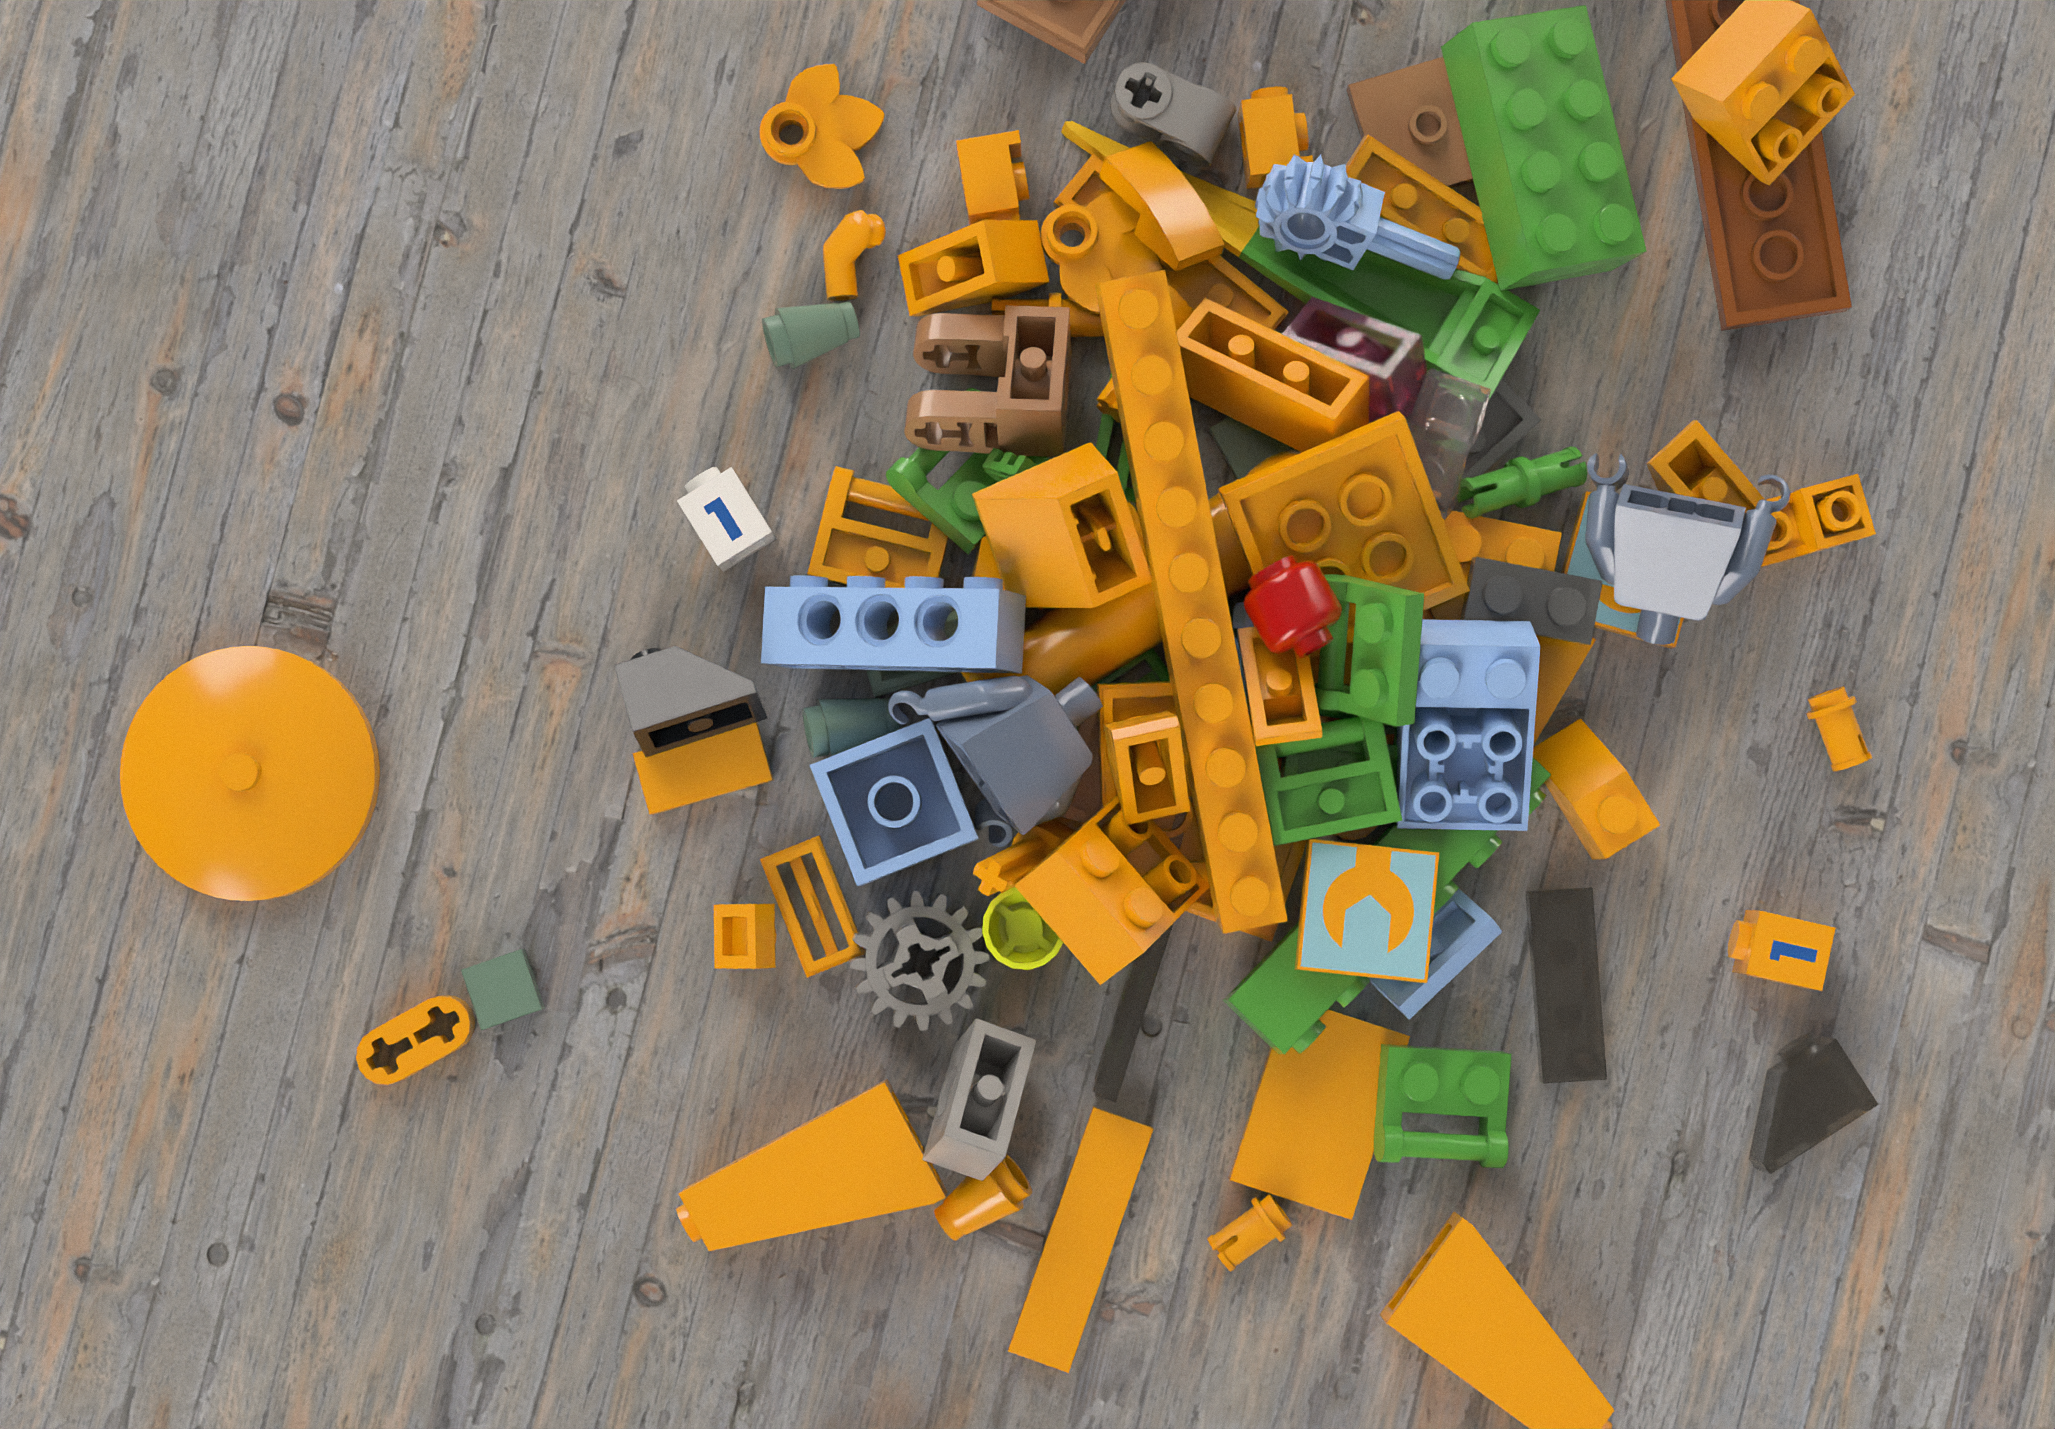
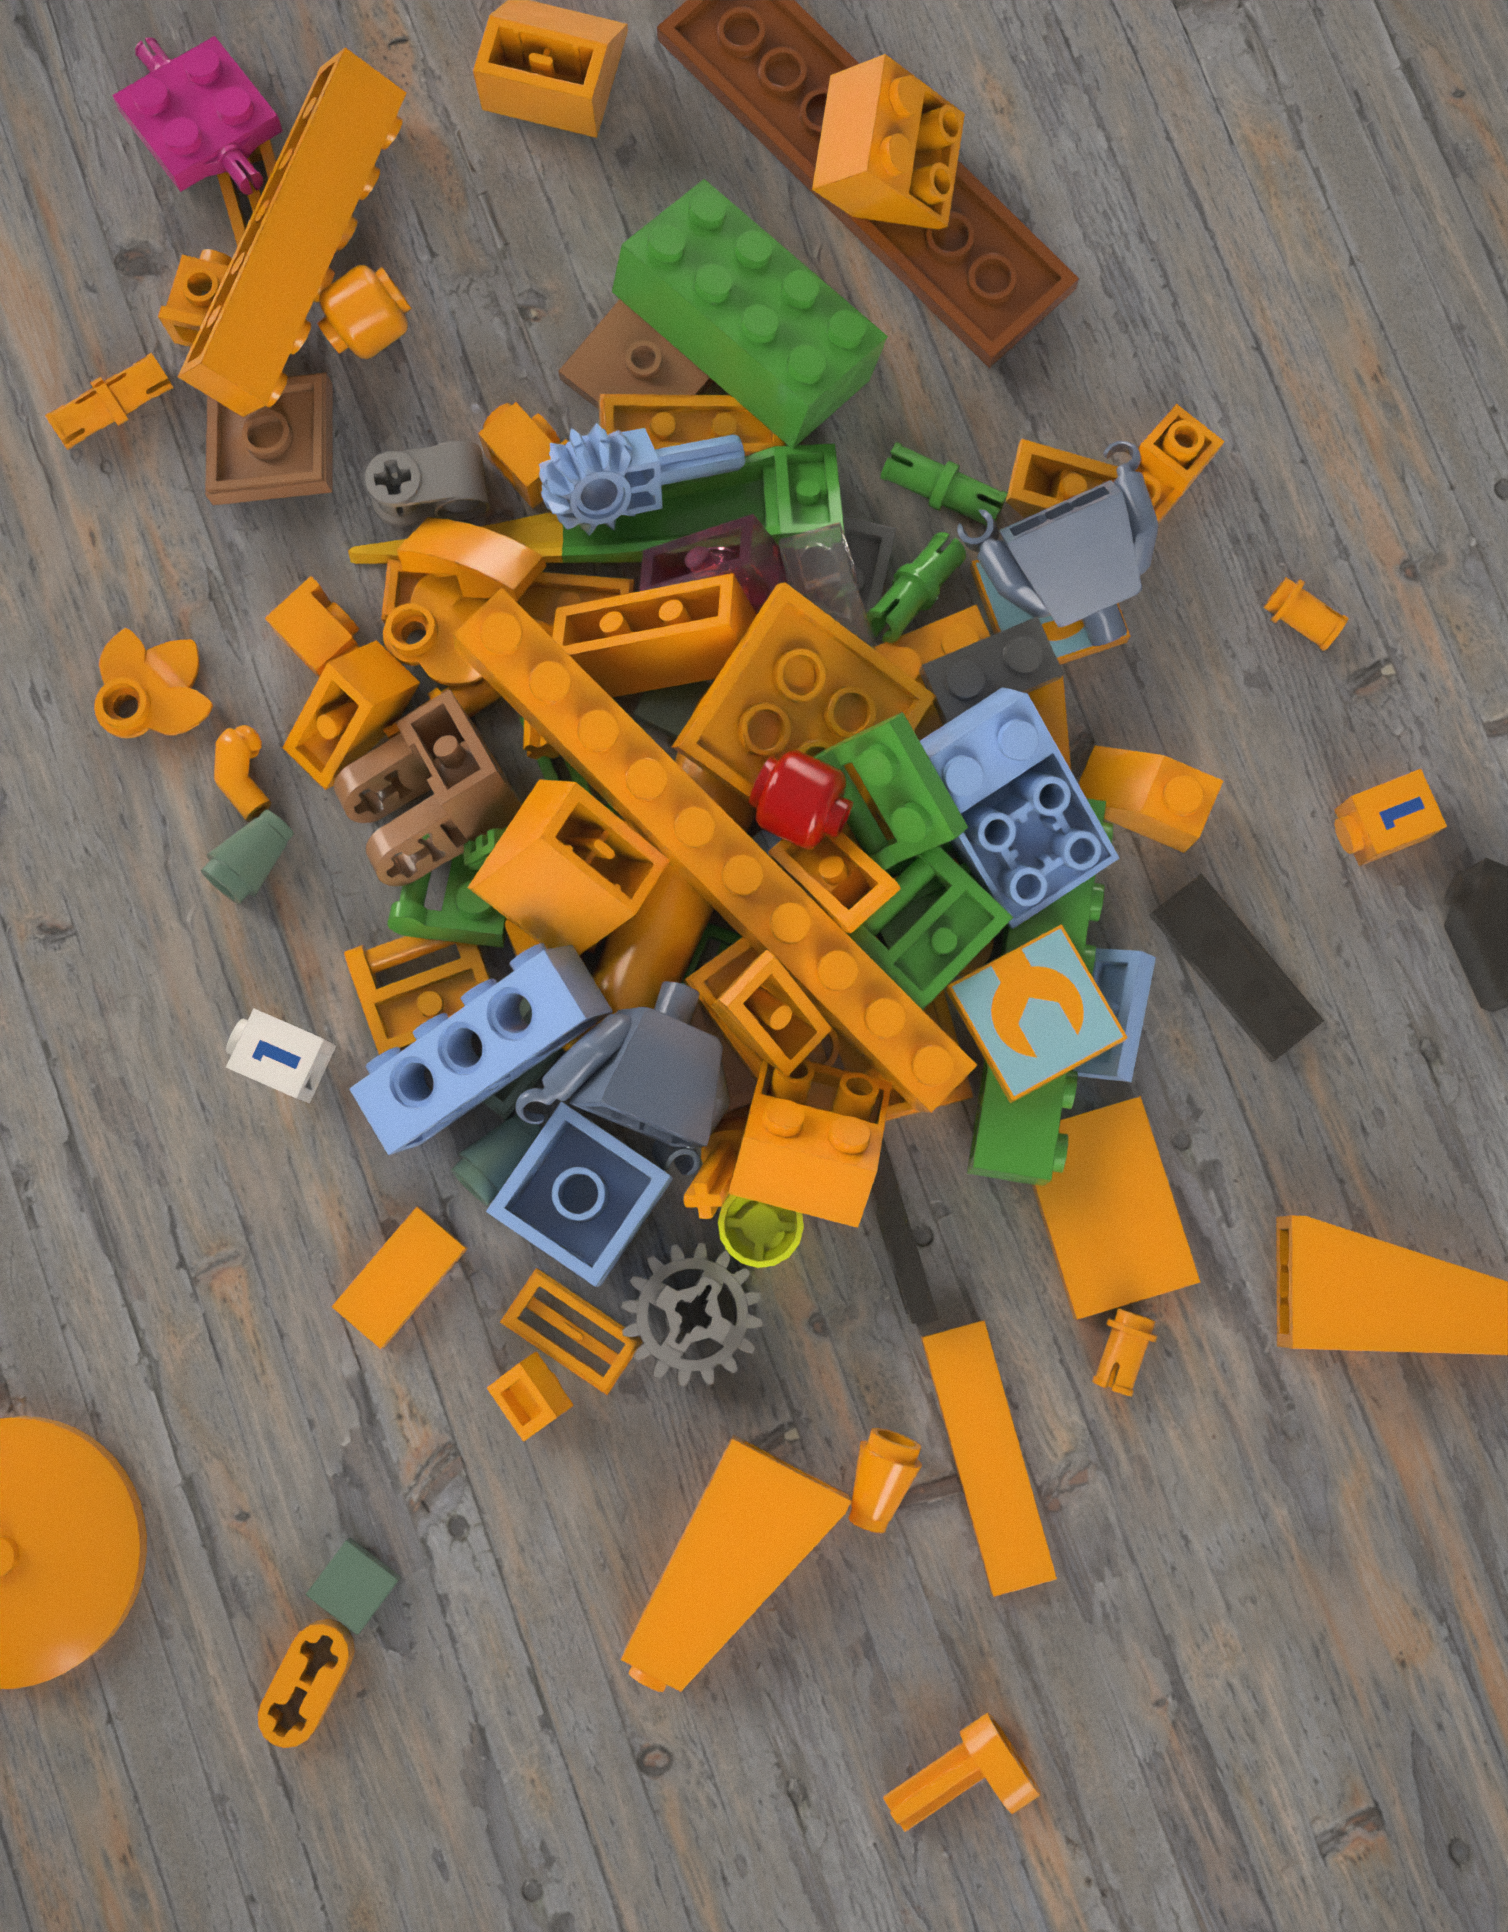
camera: 35 degrees left, 5 degrees down
(683, 698) = (343, 1230): slope -> none
(979, 1100) = (823, 1398): light grey brick -> none
(1445, 1084) = (1196, 1116): bright green plate -> none
(1608, 407) = (942, 484): none -> bright green pin

